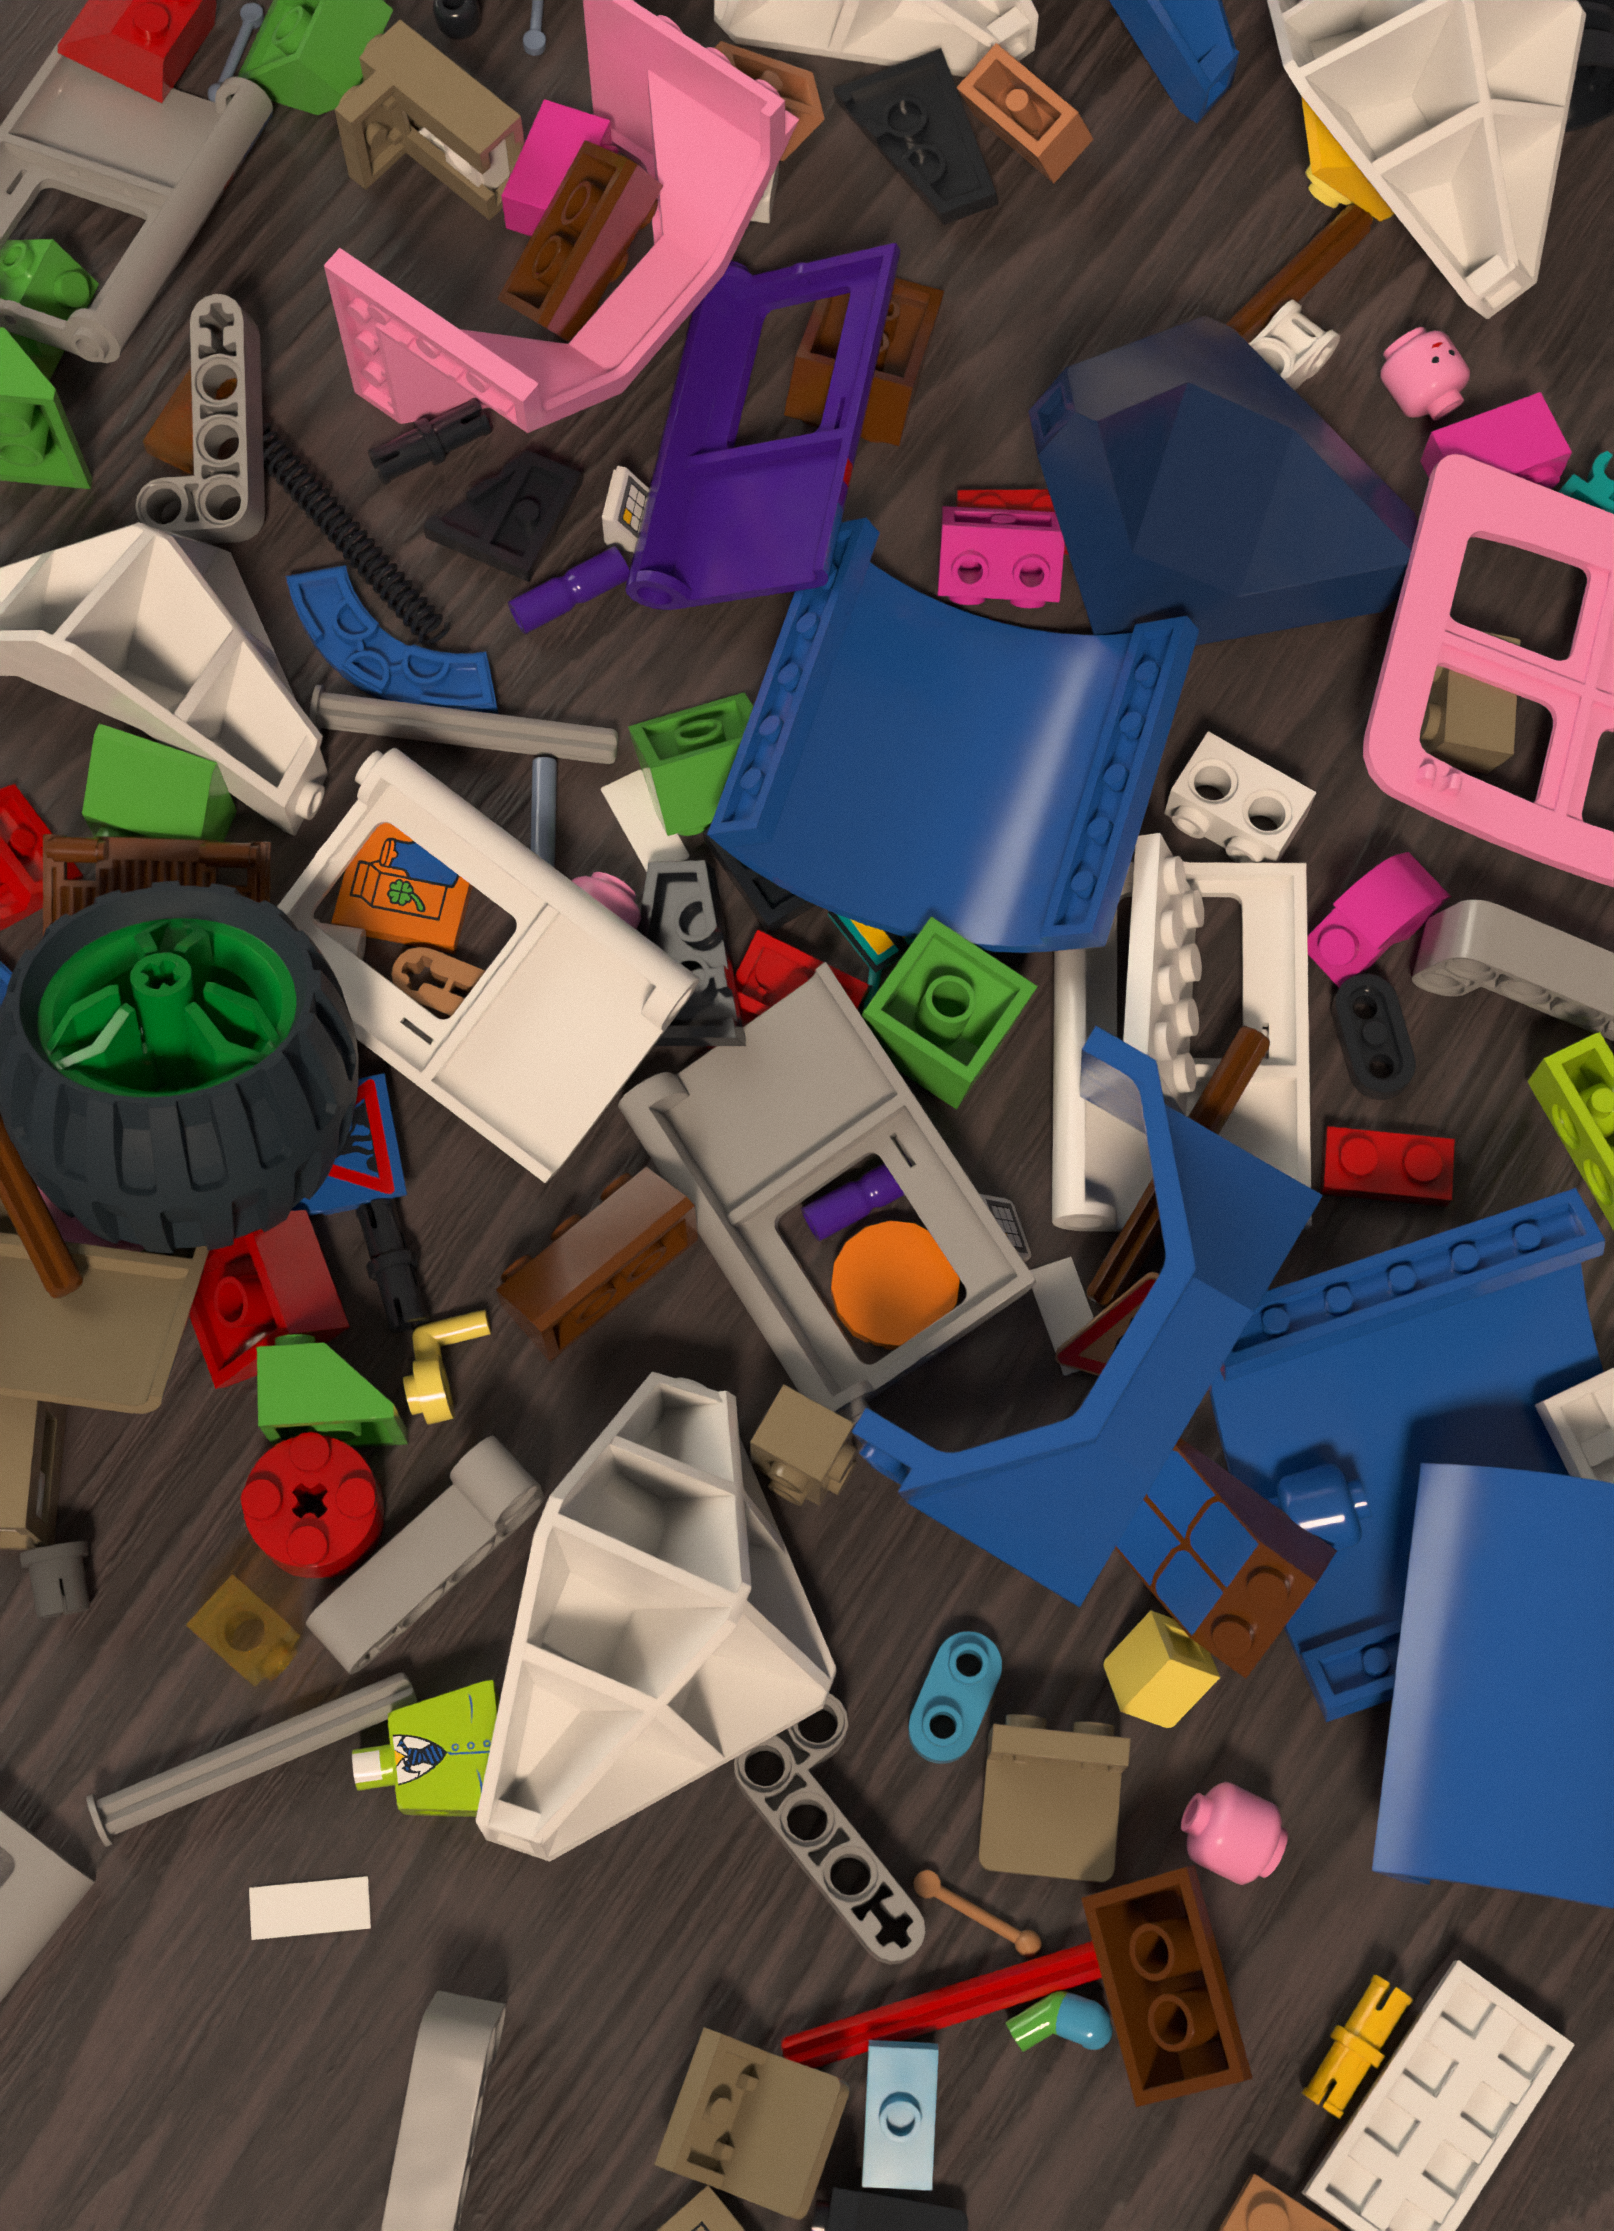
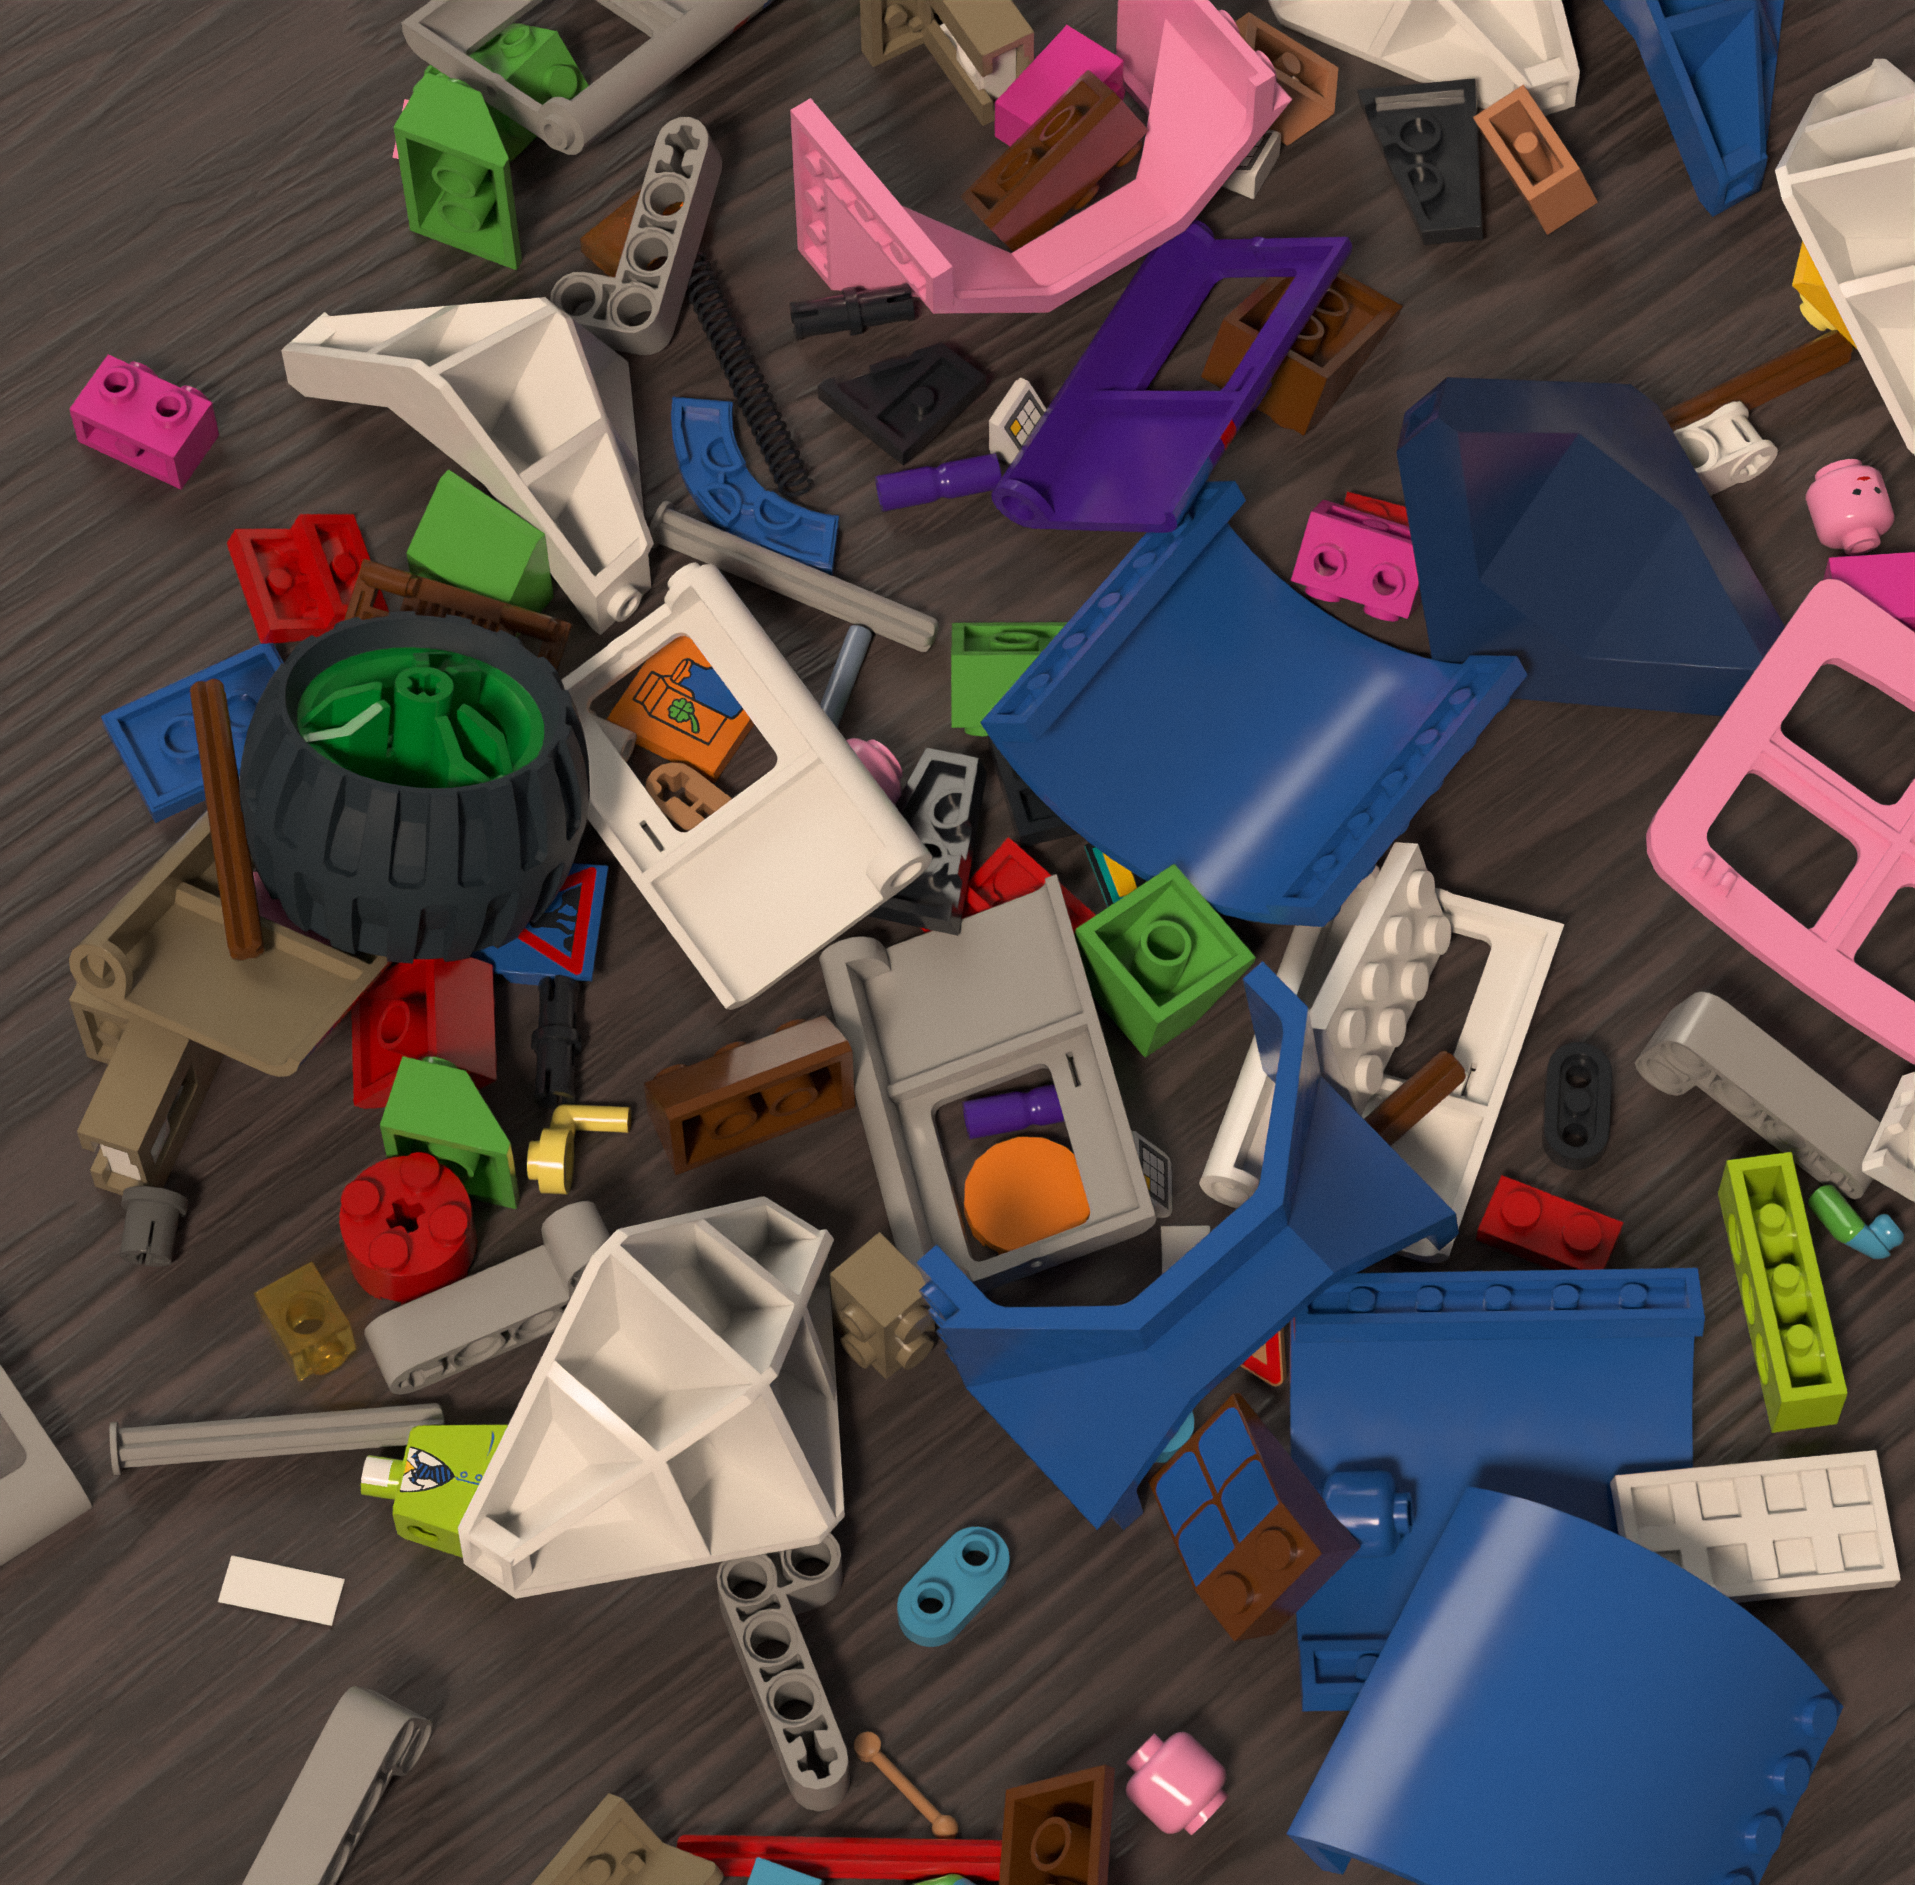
camera: 20 degrees right, 10 degrees down
(637, 816) = (932, 710): white sticker -> none
(1052, 1799) = (1013, 1696): dark tan bracket -> none
(1159, 1671) = (1157, 1618): light yellow panel -> none
(1248, 791) = (1532, 847): white brick -> none
(1373, 915) = (1616, 985): dark pink brick -> none
(1469, 720) = (1771, 836): dark tan brick -> none

